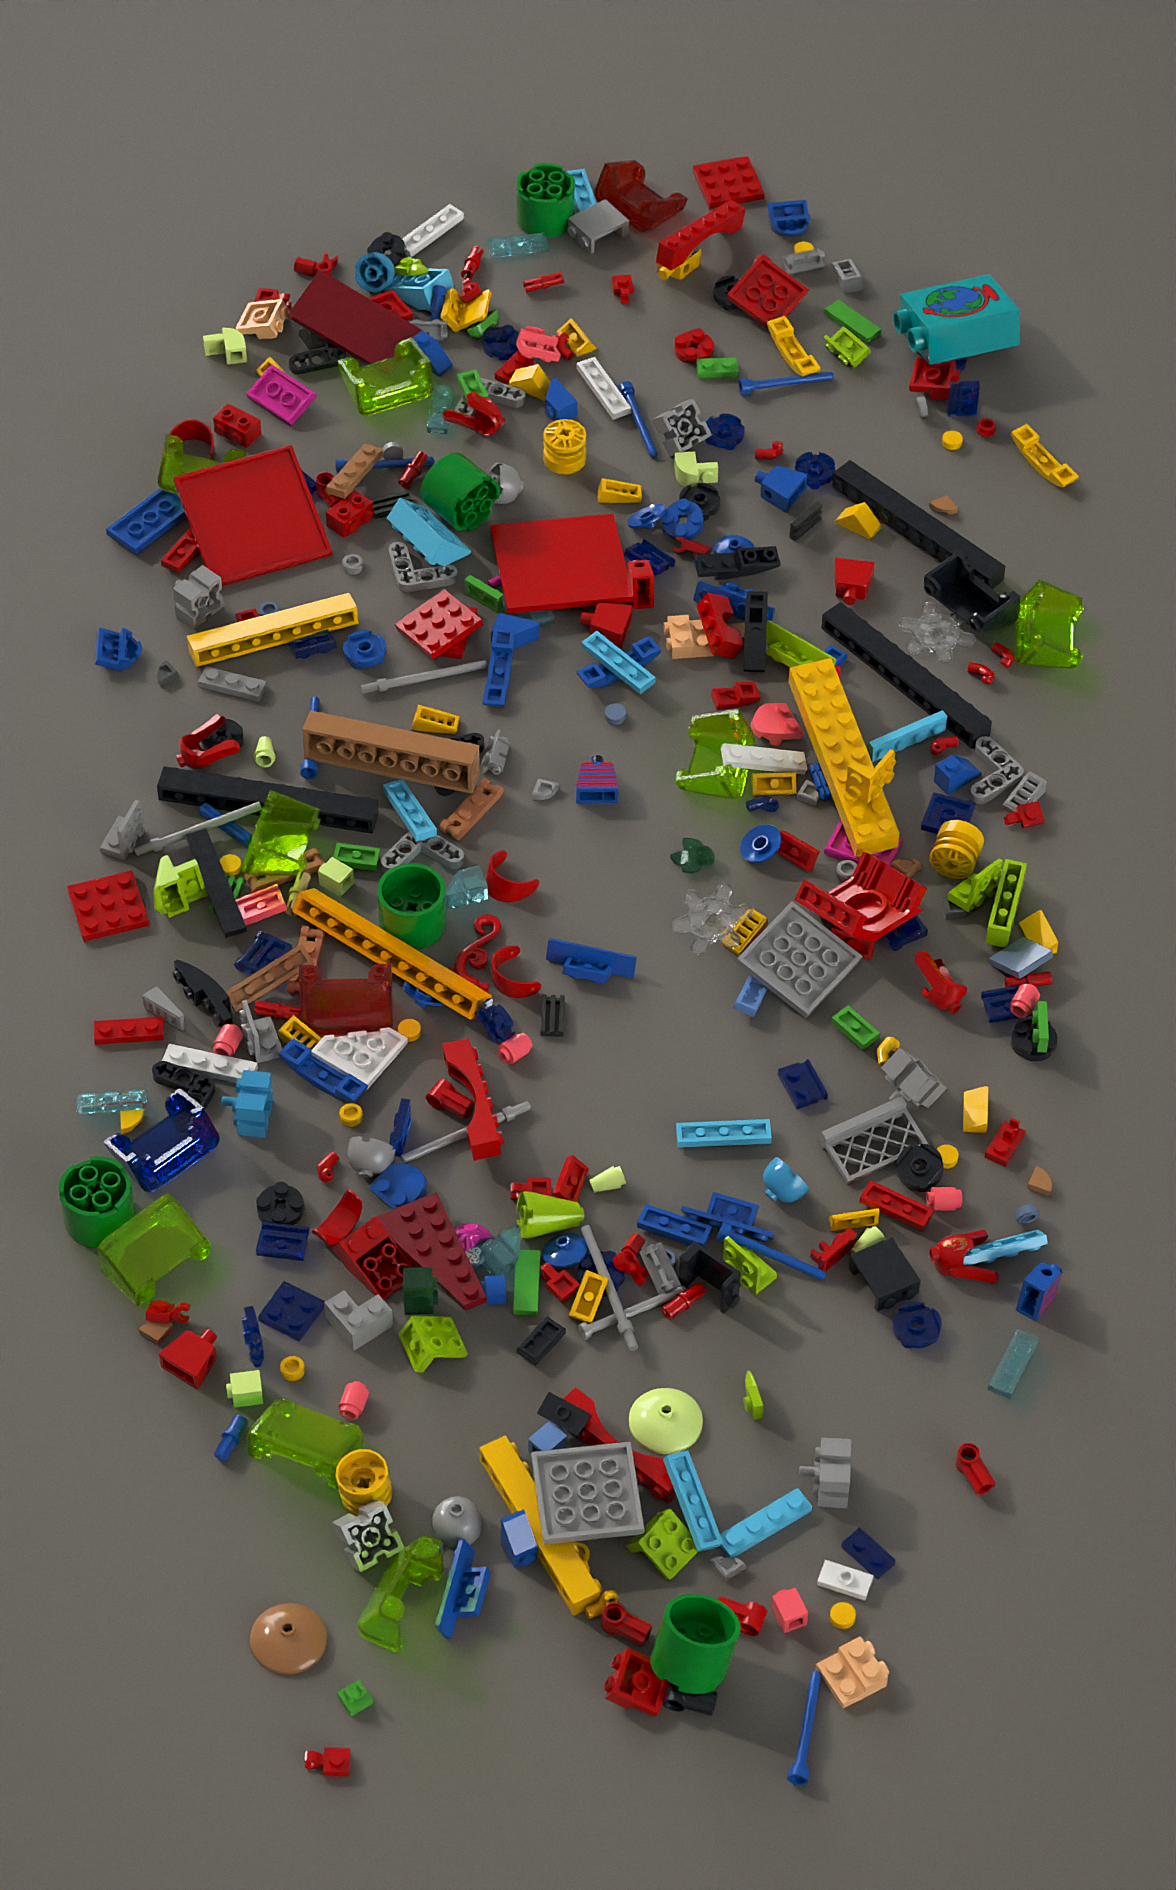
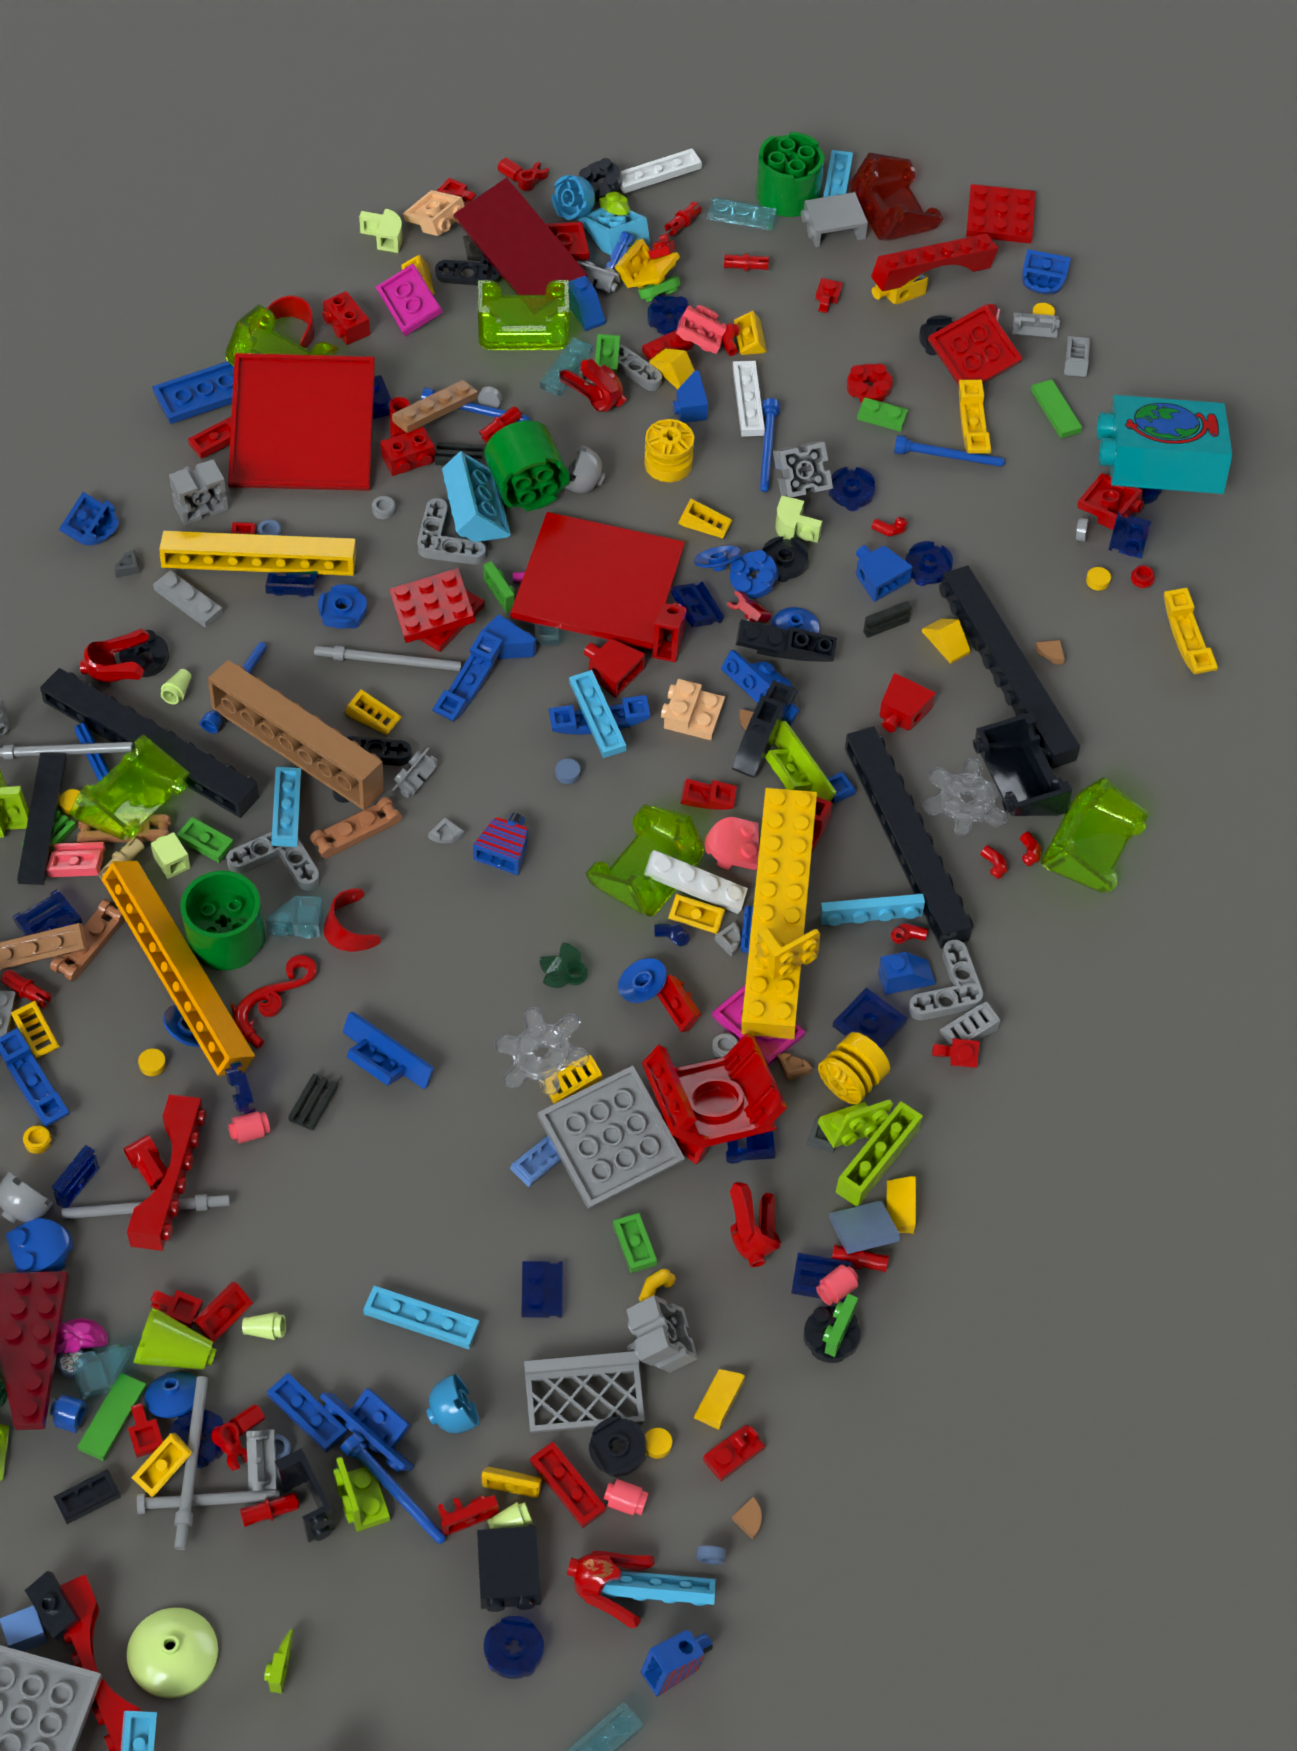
camera: 20 degrees right, 5 degrees up
(346, 1004) = (97, 1014): clear red windscreen -> none
(361, 1052) = (84, 1071): white plate -> none
(506, 986) = (280, 1018): red piece -> none
(714, 613) = (729, 693): red arch -> none
(847, 346) = (1034, 436): lime bracket -> none

